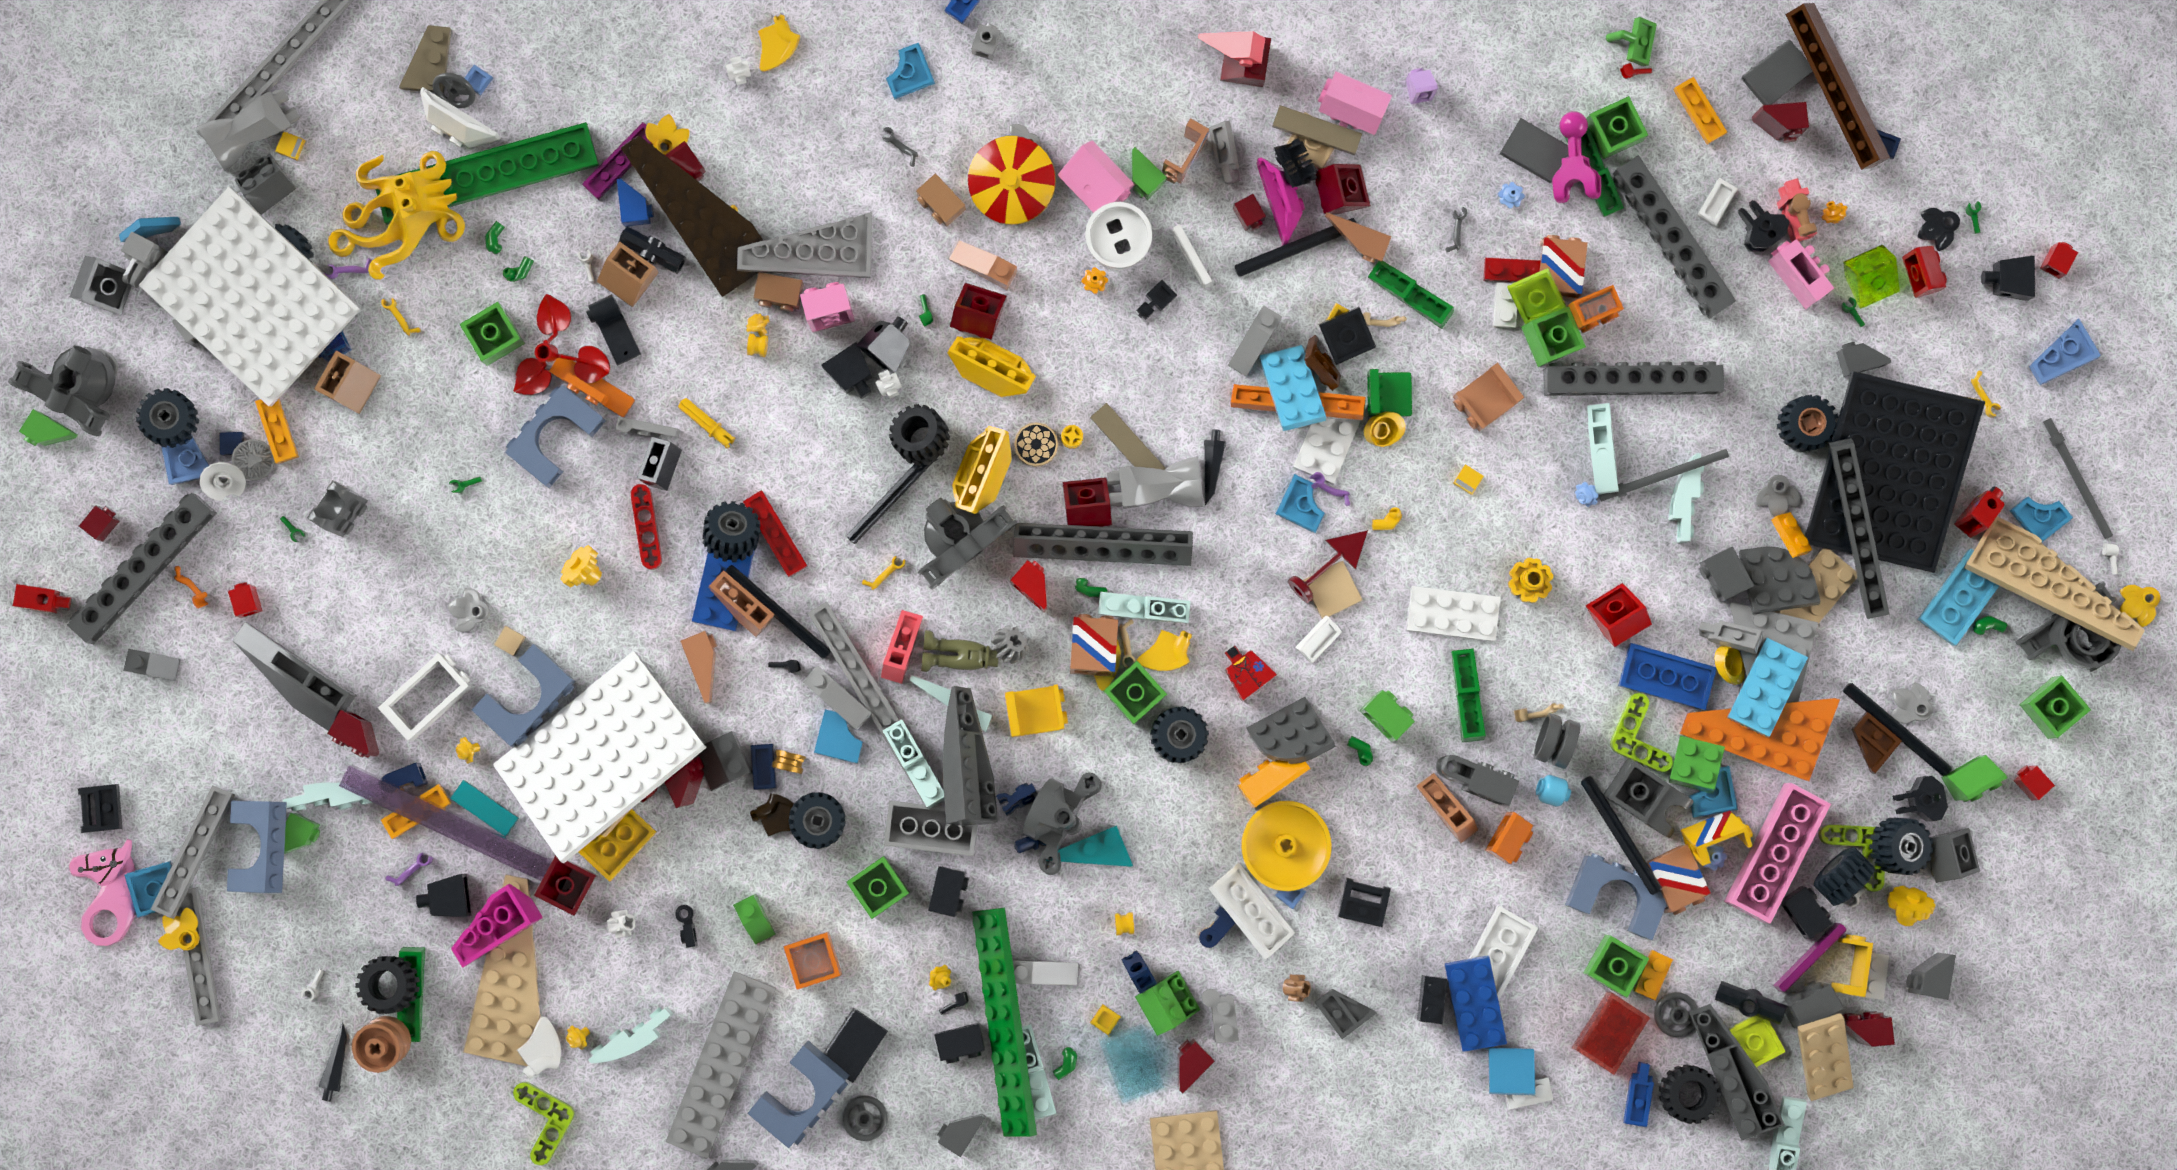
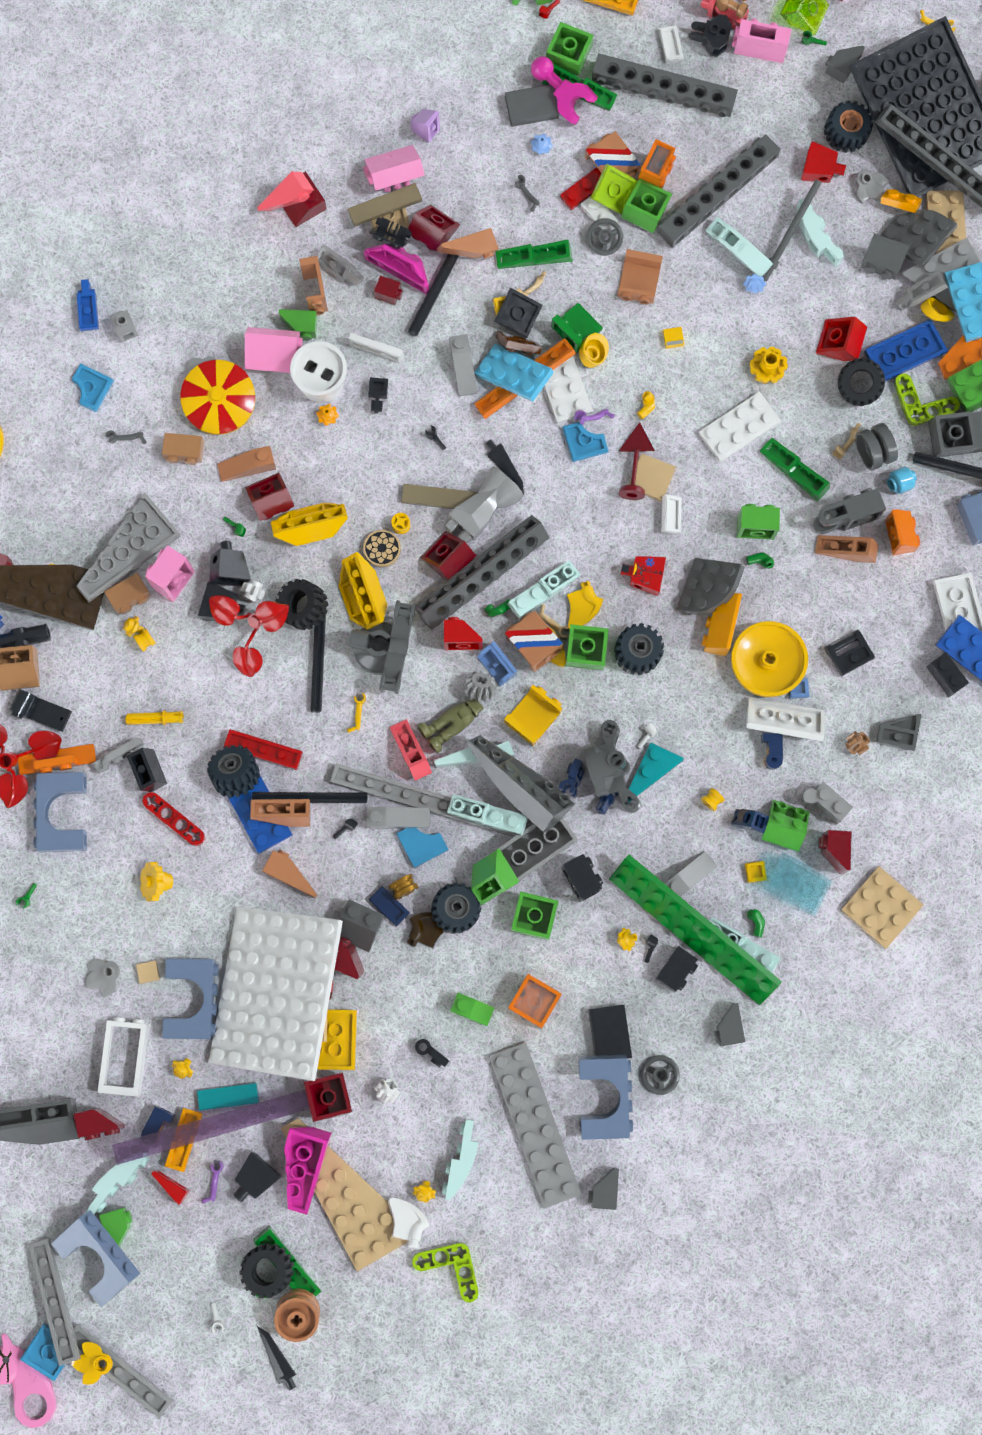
camera: 35 degrees left, 5 degrees down
(371, 842) = (173, 1188): none -> red slope
(869, 822) = (492, 877): none -> bright green slope
(879, 421) = (268, 613): none -> red plant
(1044, 637) = (497, 664): none -> medium blue hinge
(1126, 815) = (651, 731): none -> white hand
(1172, 385) = (433, 436): none -> black hand
(1477, 344) = (593, 228): none -> dark grey piece
(1579, 677) = (851, 368): none -> black tyre
(1750, 437) = (821, 164): none -> red torso

